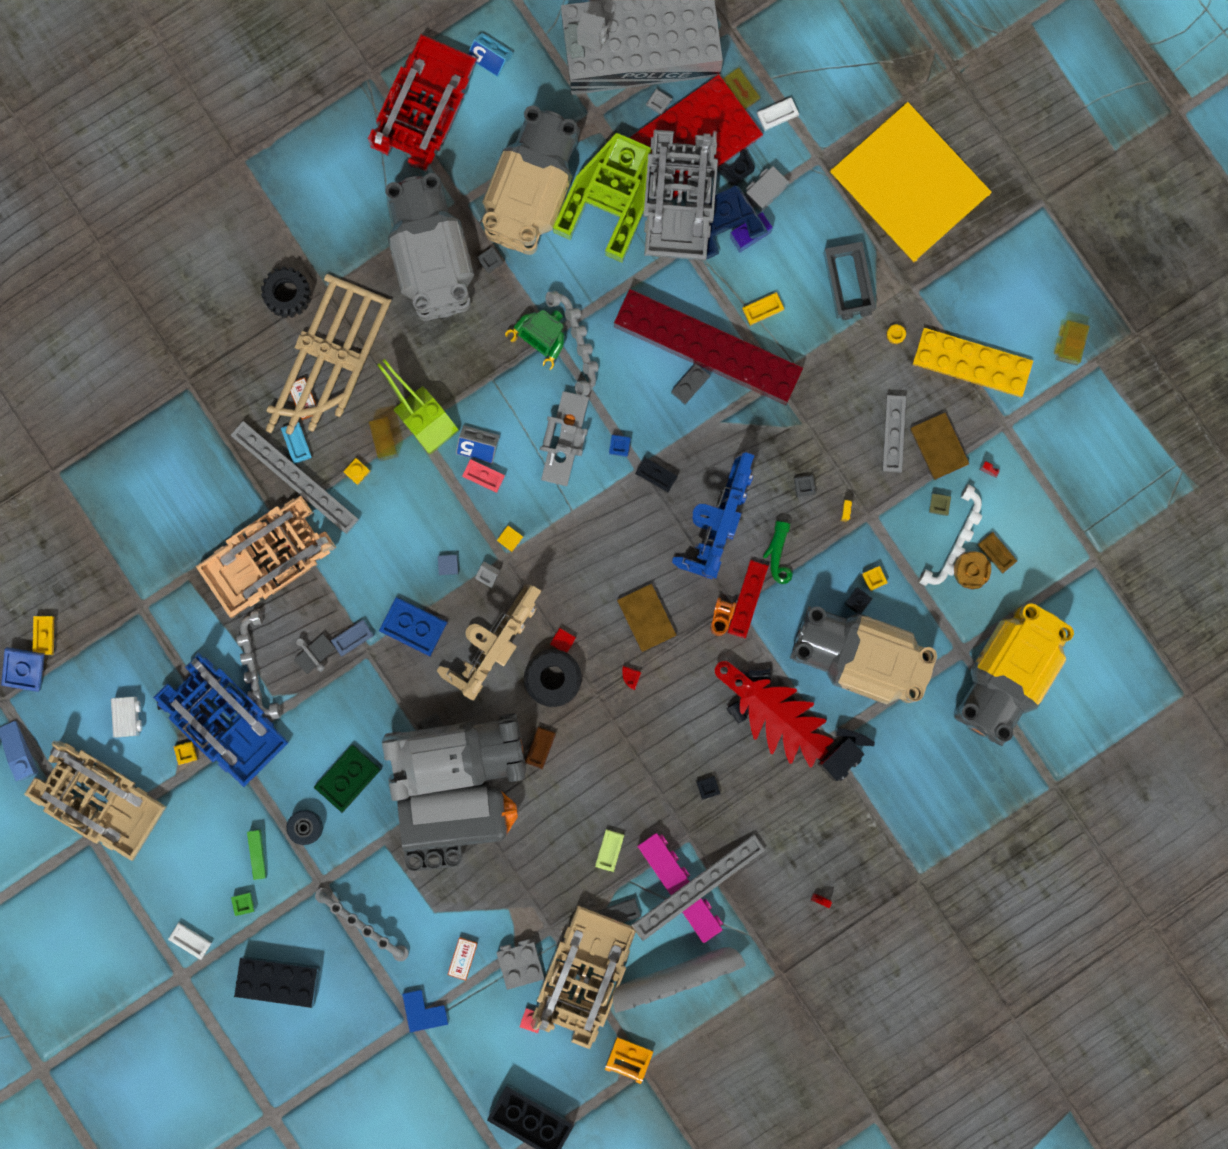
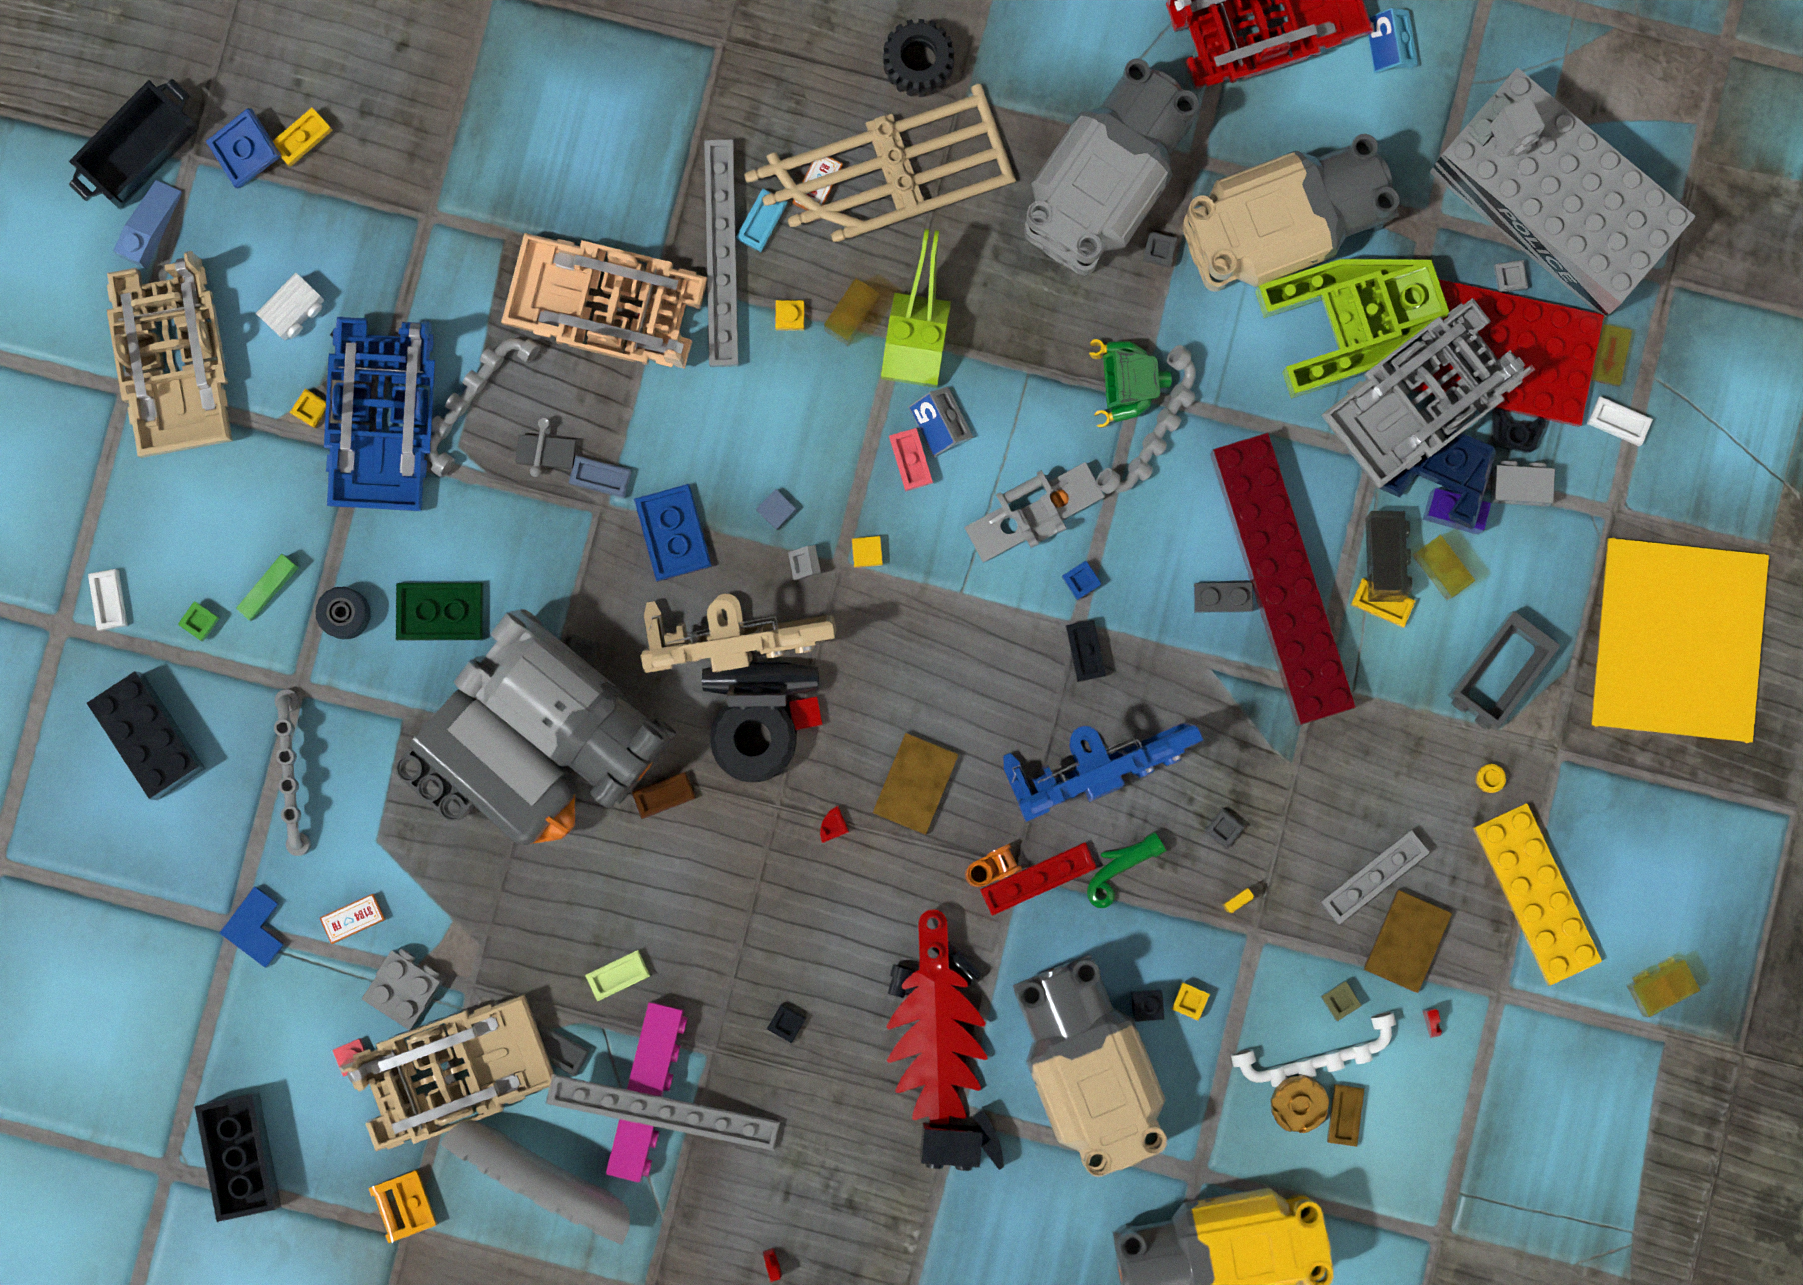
camera: 50 degrees right, 0 degrees up
(529, 649) = (761, 683): none -> black plate
(743, 285) = (1387, 556): none -> clear smoke brick
(772, 263) = (1443, 567): none -> clear yellow brick

